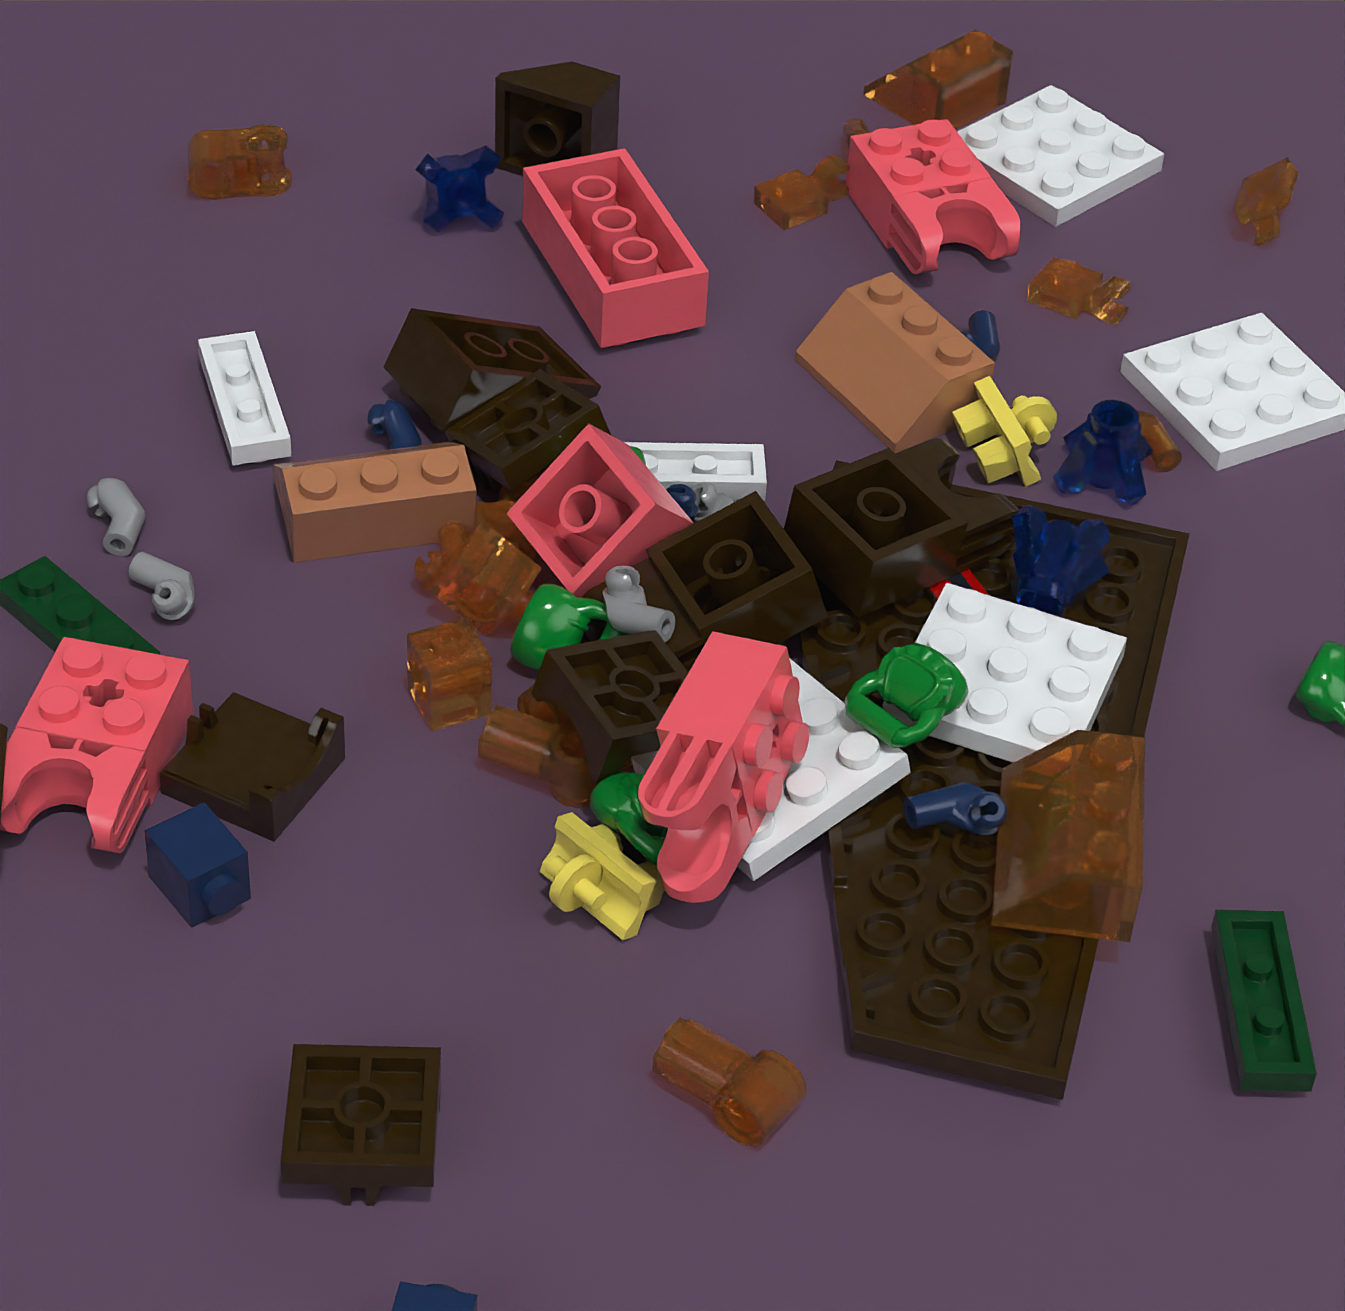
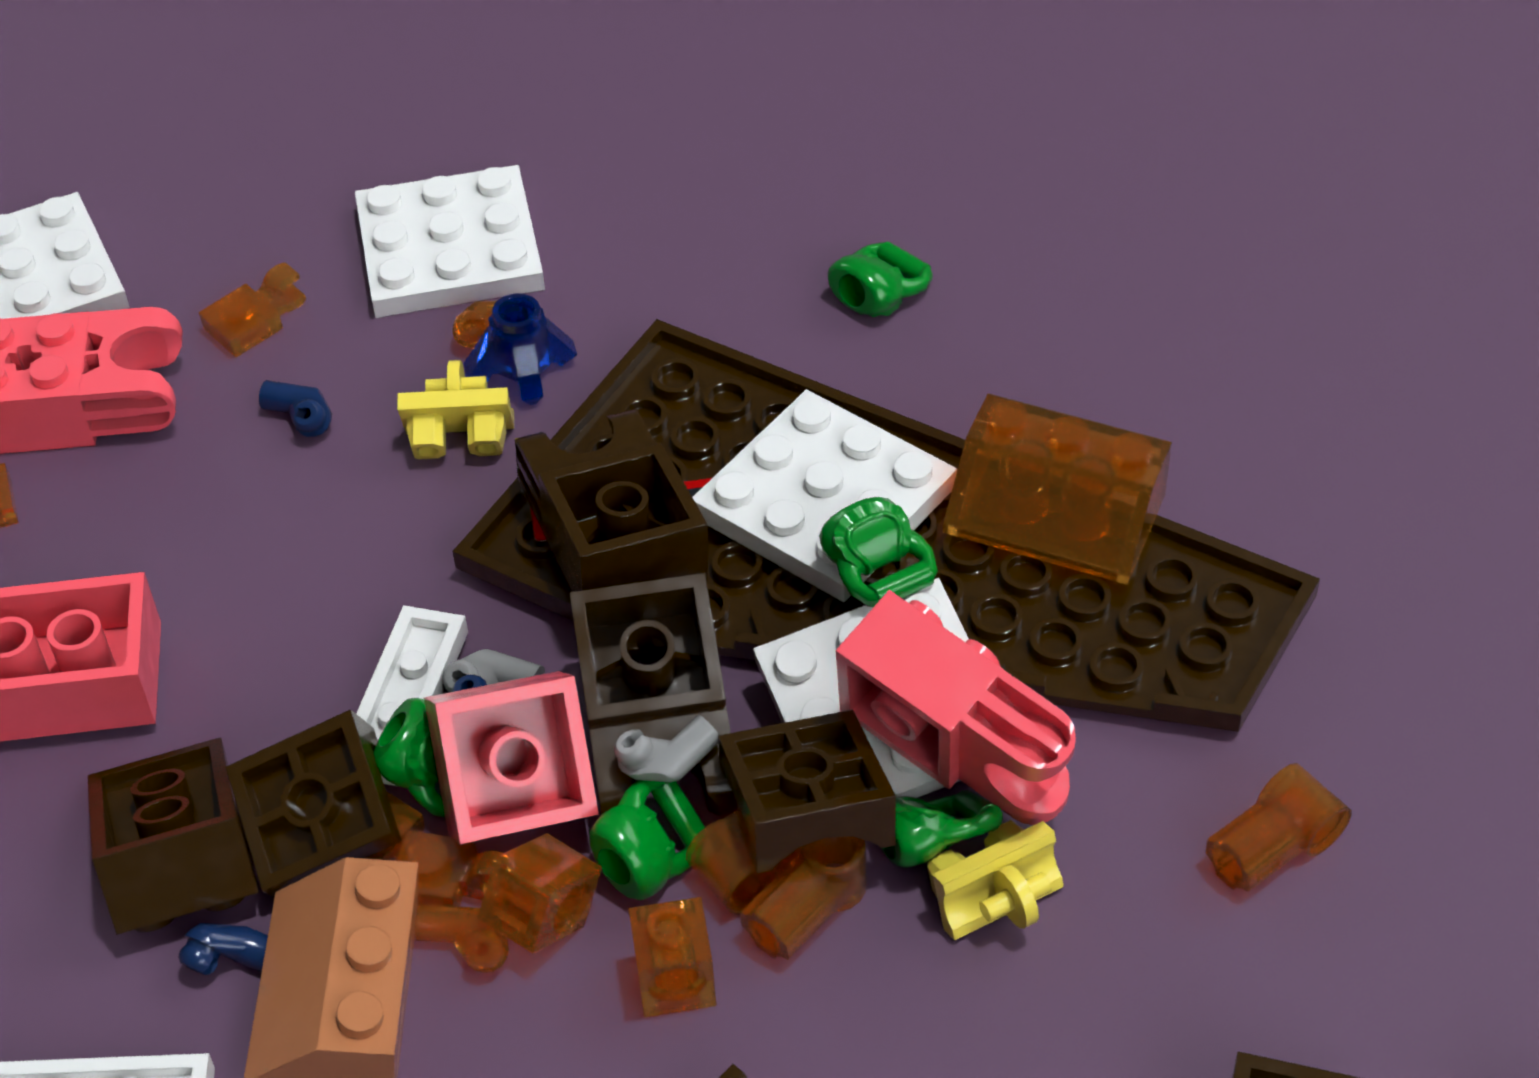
camera: 70 degrees left, 5 degrees up
(894, 362) = (315, 471): nougat slope -> none
(958, 805) = (990, 563): dark blue arm -> none
(1056, 559) = (703, 407): clear blue rock -> none
(1263, 1001) = (1235, 430): dark green plate -> none
(1264, 196) = (185, 140): clear orange plate -> none

